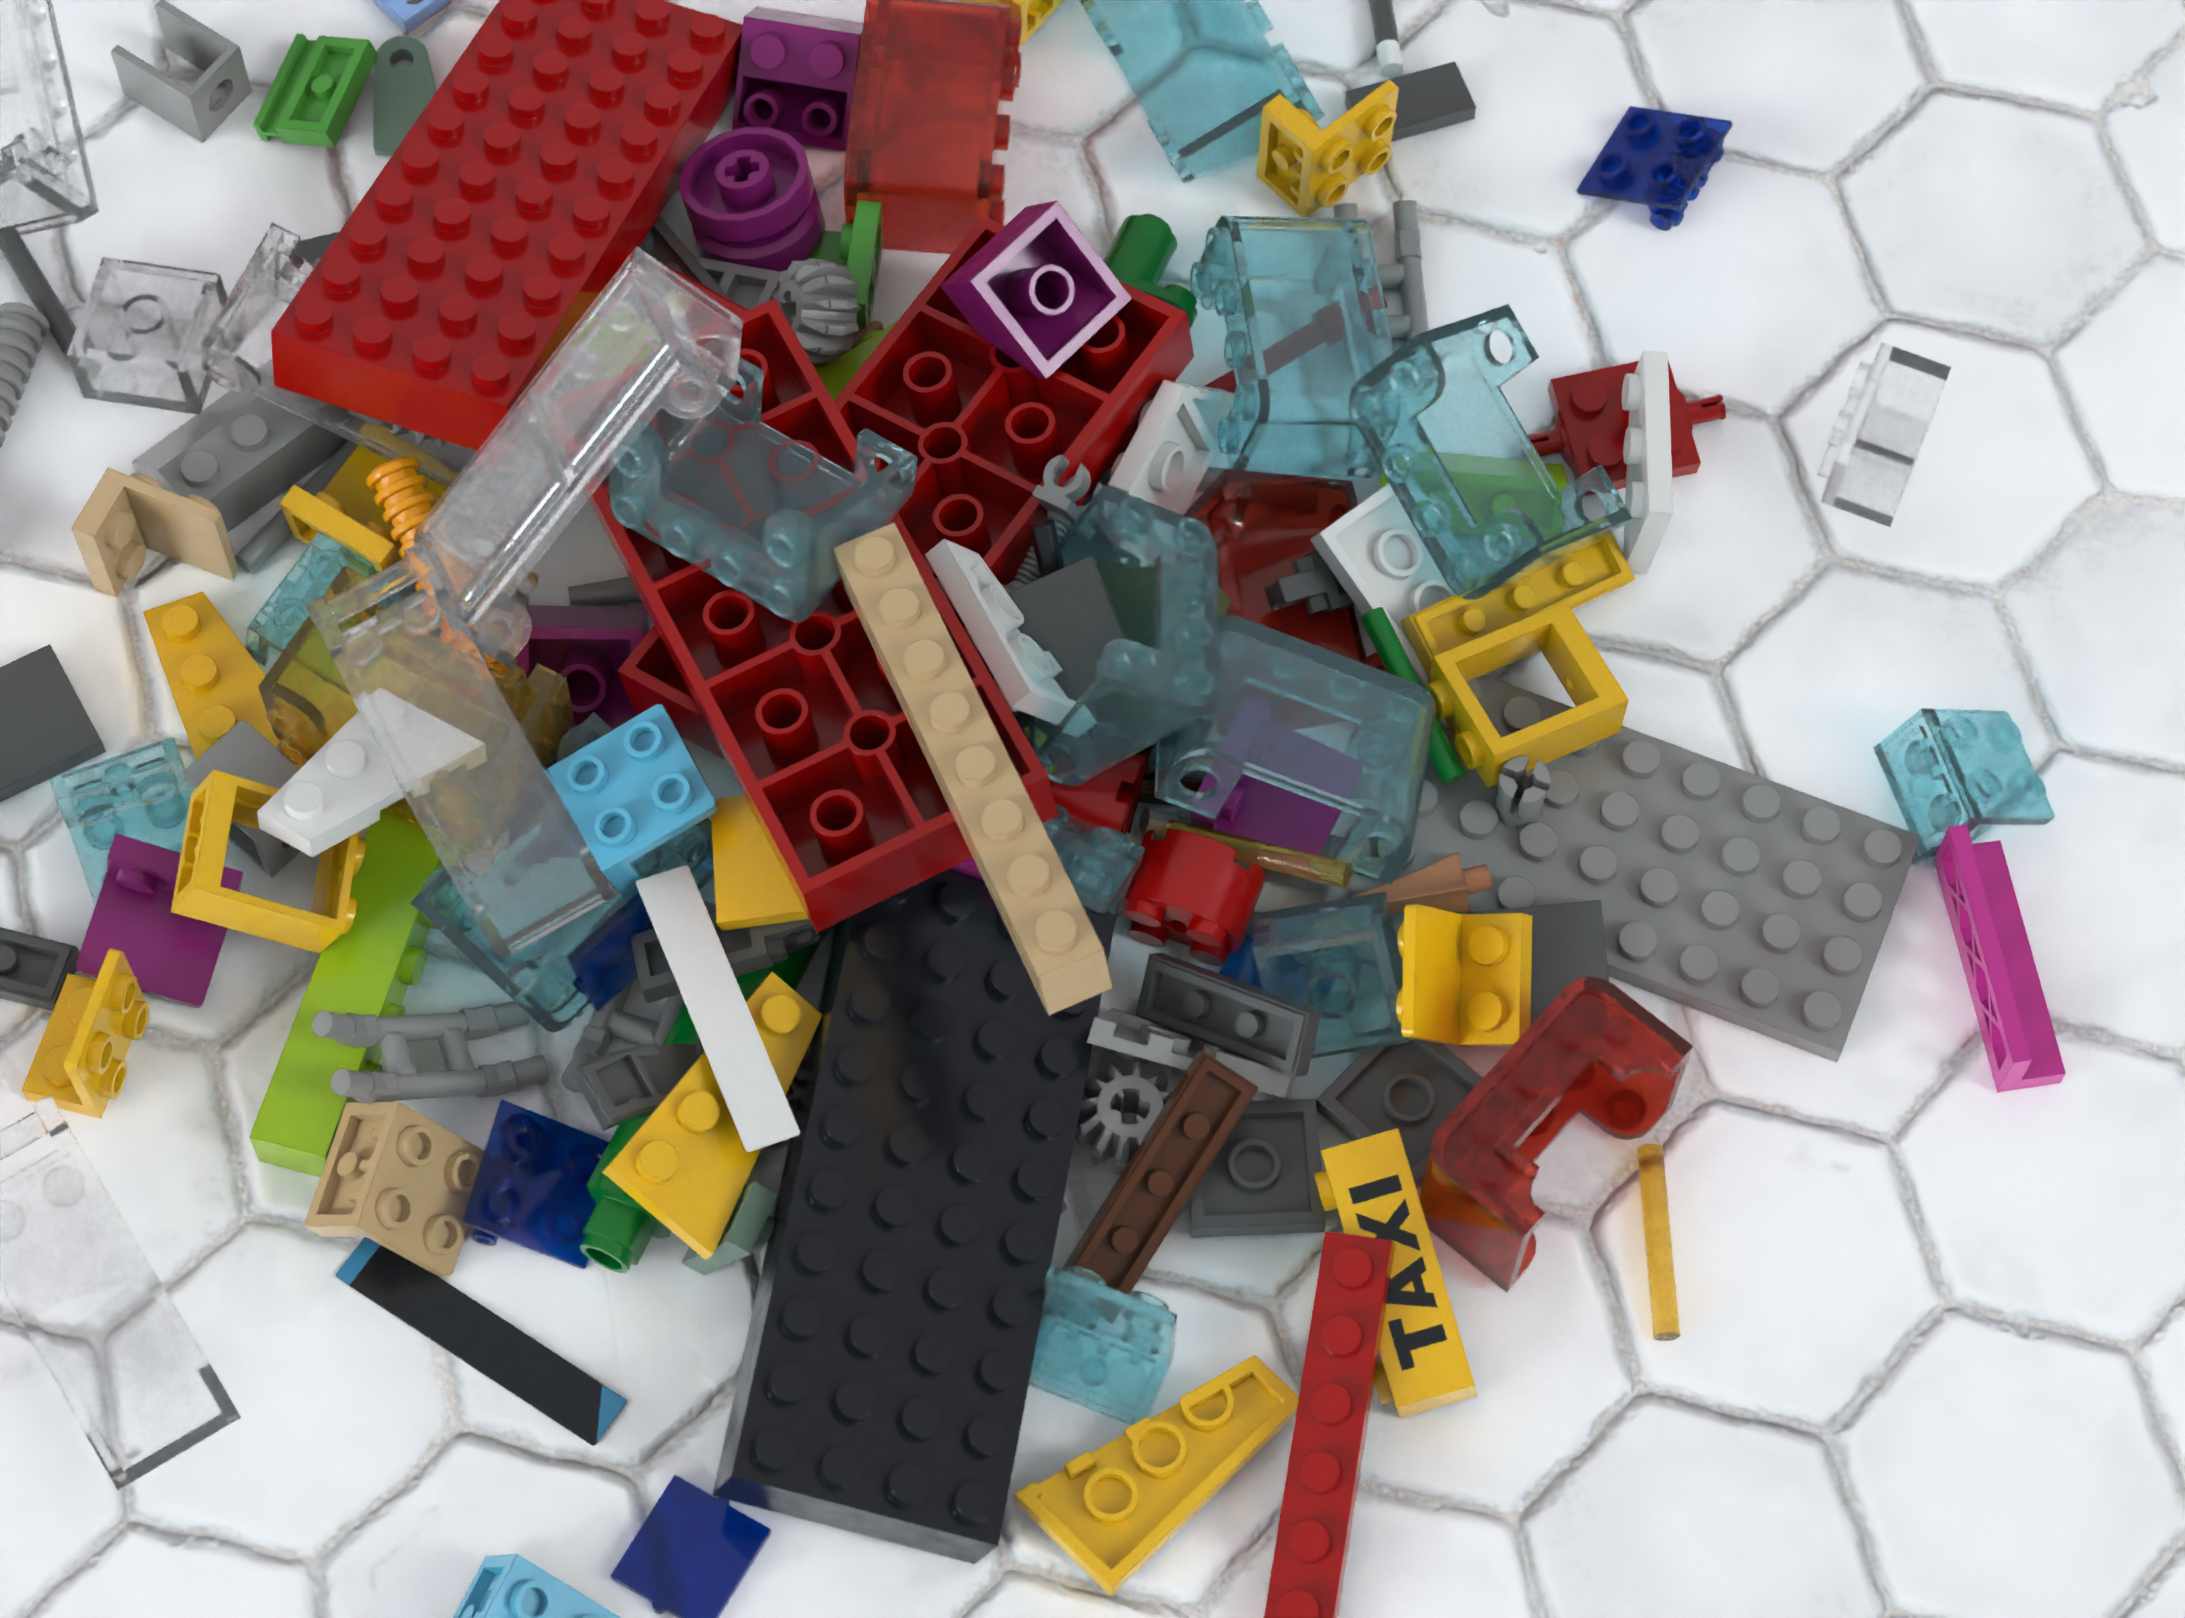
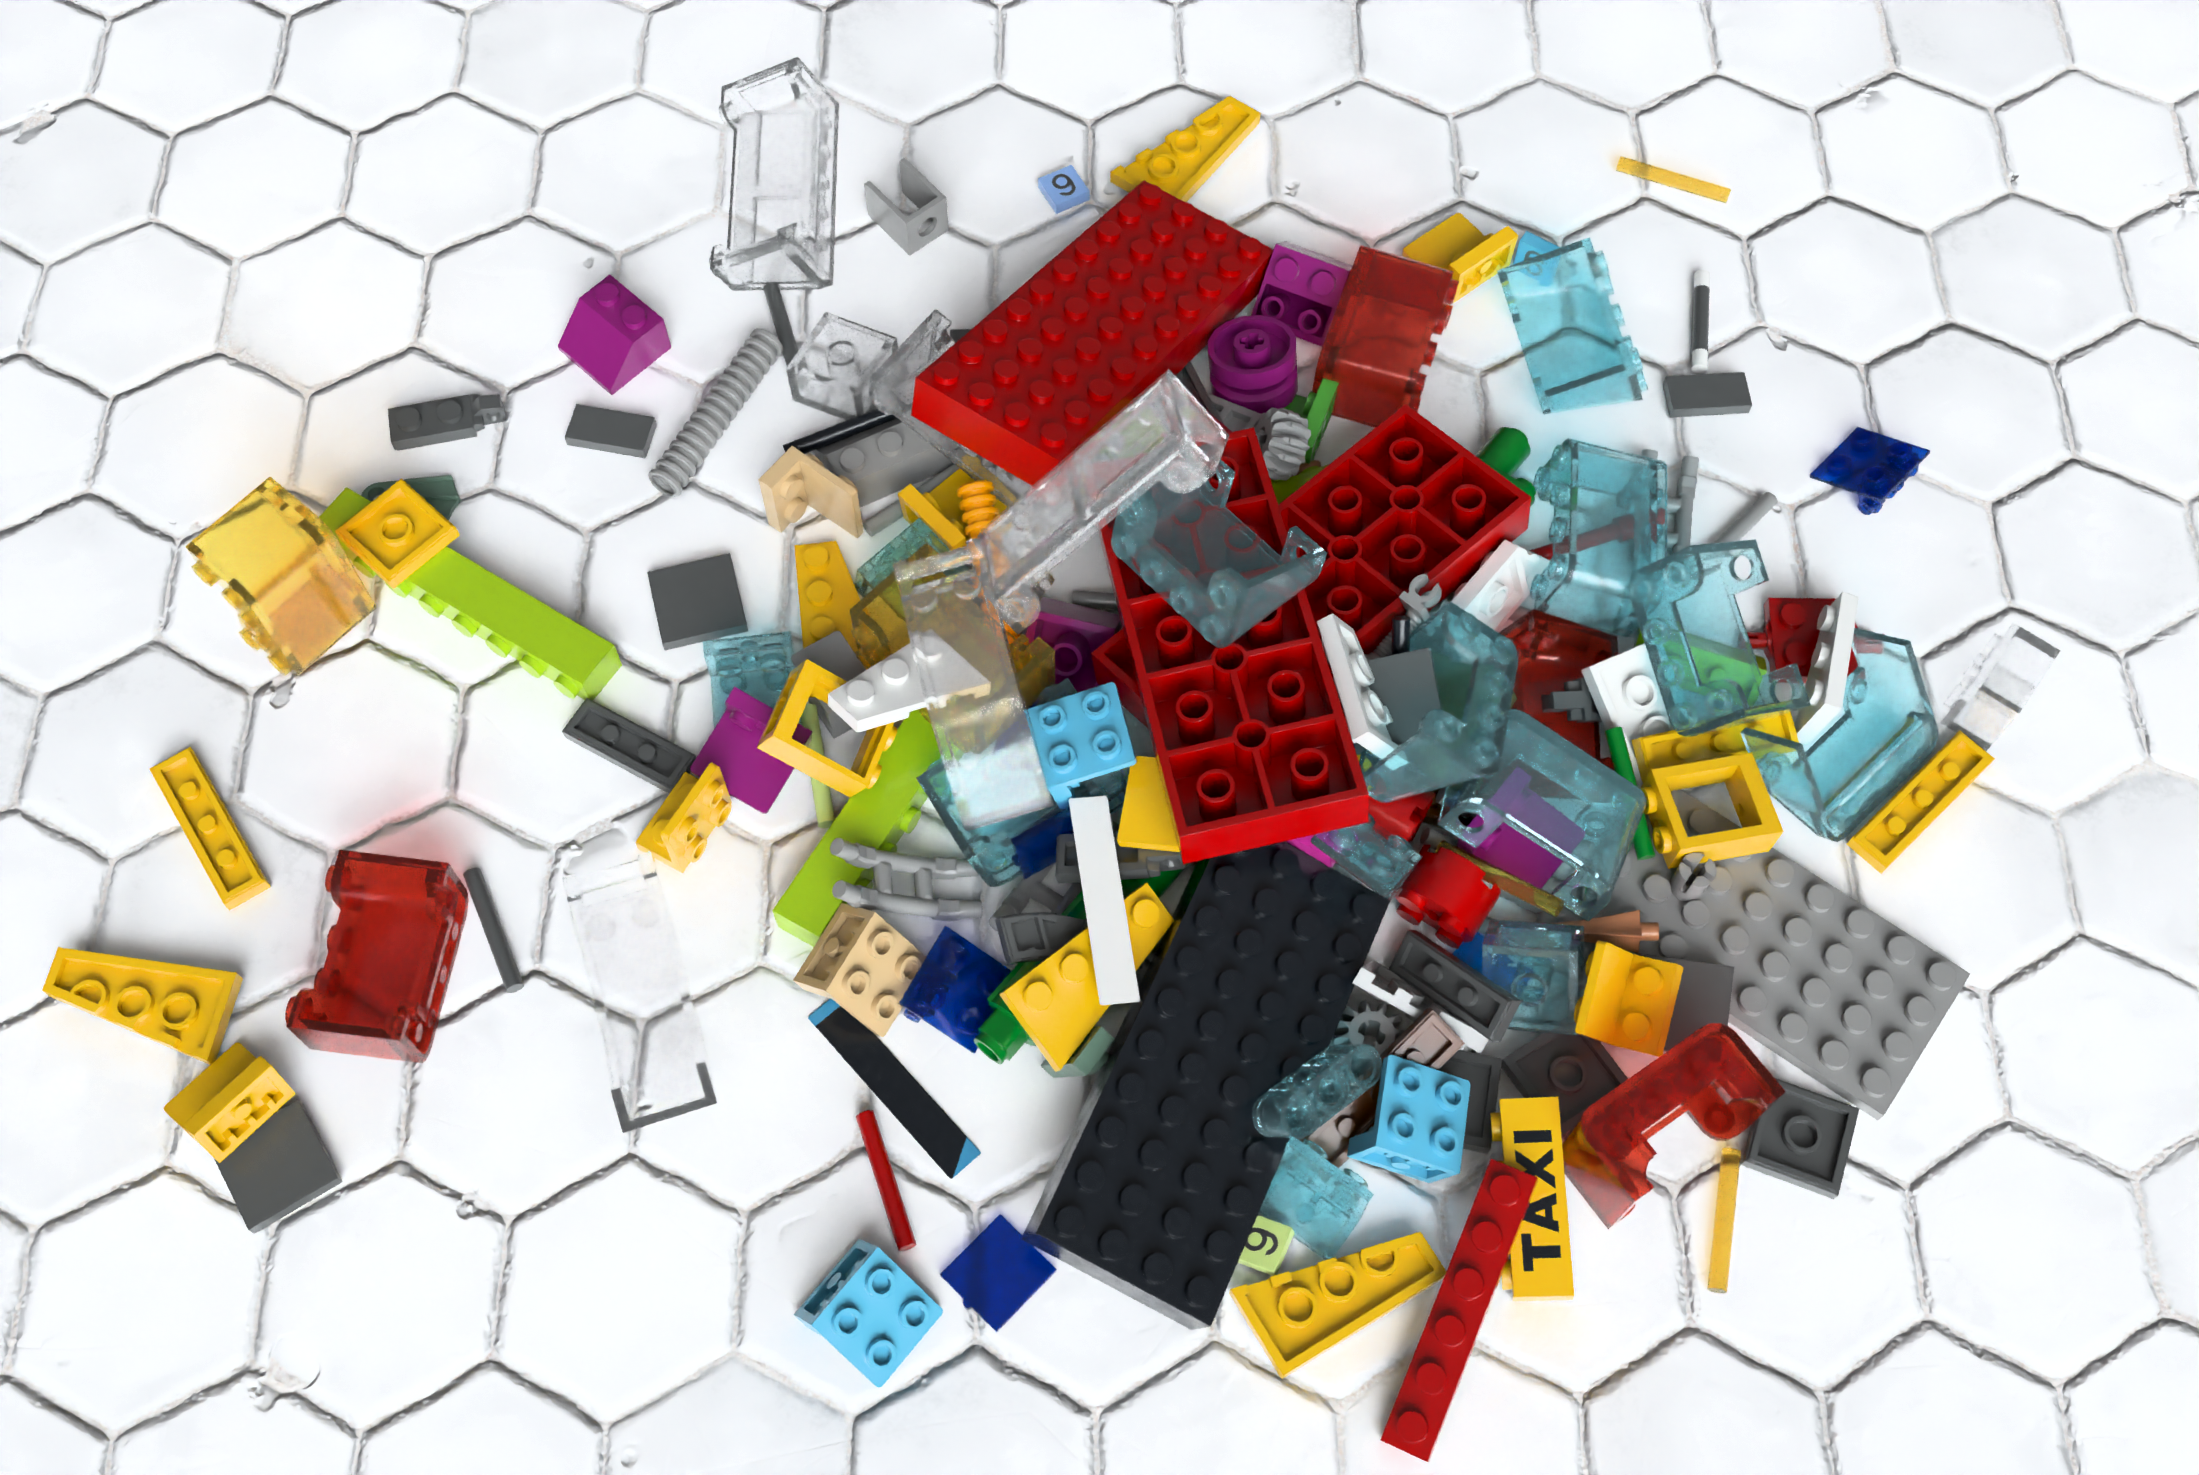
camera: 15 degrees right, 0 degrees up
(166, 430) = (840, 431): none -> black bar
(271, 952) = (821, 791): none -> yellowish green bar
(315, 90) = (988, 236): bright green plate -> none
(399, 93) = (1041, 247): sand green piece -> none
(503, 1469) = (886, 1180): none -> red bar
(973, 770) = (1318, 782): tan brick -> none
(1037, 289) = (1432, 459): magenta slope -> none
(1050, 1426) = (1266, 1246): none -> yellowish green tile
(1071, 1197) = (1317, 1091): none -> clear light blue beam
(1215, 1210) = (1416, 1122): none -> medium azure bracket
(1318, 165) = (1634, 419): yellow bracket -> none
(1503, 273) = (1749, 518): none -> light grey bar
(1723, 570) = (1865, 753): none -> clear light blue windscreen
(1740, 1110) = (1803, 1140): none -> dark grey tile
(1813, 617) = (1920, 801): none -> yellow tile
(1961, 771) = (2007, 937): clear light blue bracket -> none
(1998, 962) = (2009, 1078): dark pink fence -> none

